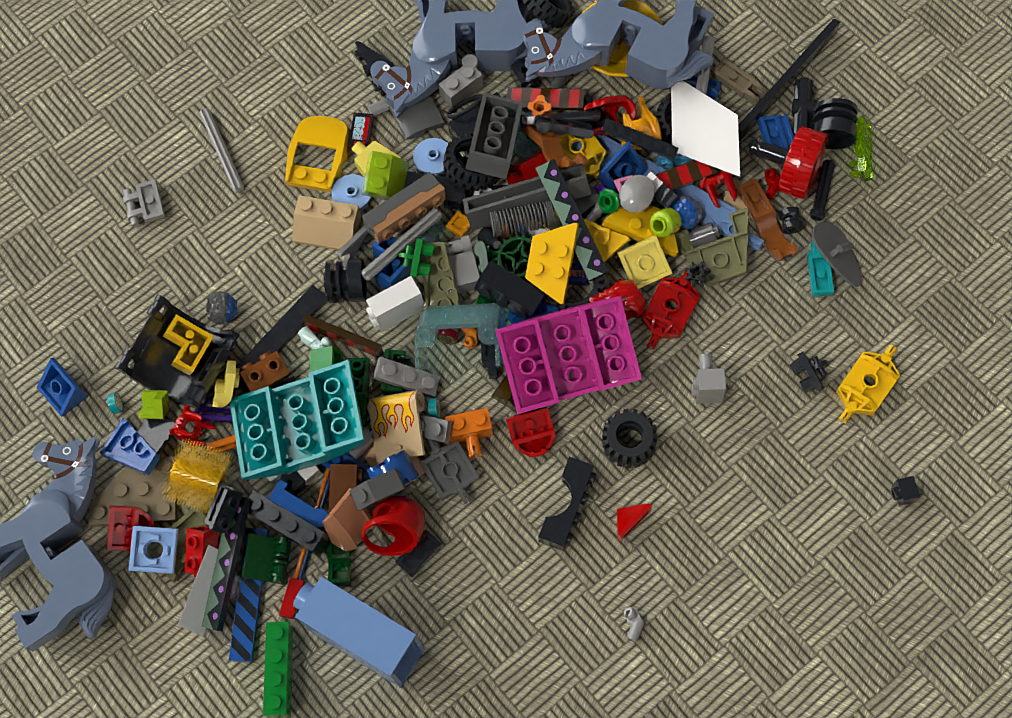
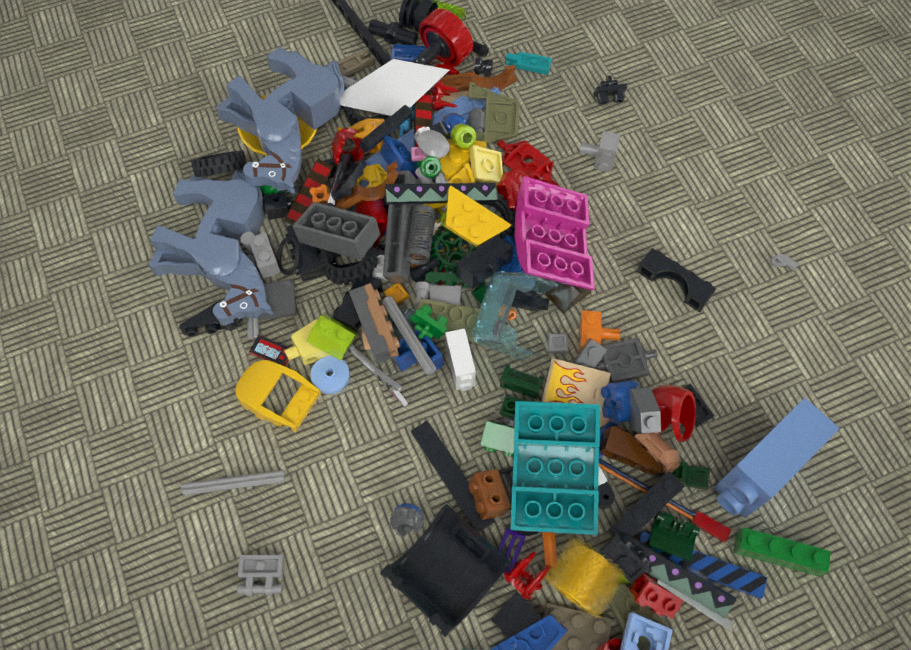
camera: 80 degrees left, 5 degrees down
(154, 404) = (488, 612): lime panel -> none
(192, 343) = (439, 554): yellow brick -> none
(225, 387) = (496, 528): light yellow slope -> none
(297, 505) = (622, 502): blue leg -> none
(311, 340) = (465, 446): light aqua arm -> none
(324, 222) = (354, 403): tan slope -> none
(343, 336) = (471, 416): dark brown tile -> none
(345, 280) = (422, 395): black wheel -> none
(406, 377) = (531, 370): light grey plate -> none
(422, 158) = (325, 305): light blue plate -> none
(434, 408) = (565, 356): teal tile -> none
(452, 399) = (557, 343): none -> light grey tile
(531, 432) = (609, 289): red slope -> none
(629, 518) = (699, 239): red slope -> none
(630, 421) = (636, 207): black tyre -> none
(698, 280) = (508, 129): black gear -> none
(837, 251) = (519, 46): dark grey shield -> none
(866, 399) = (633, 70): yellow plate -> none
(905, 491) = (717, 63): black plate -> none

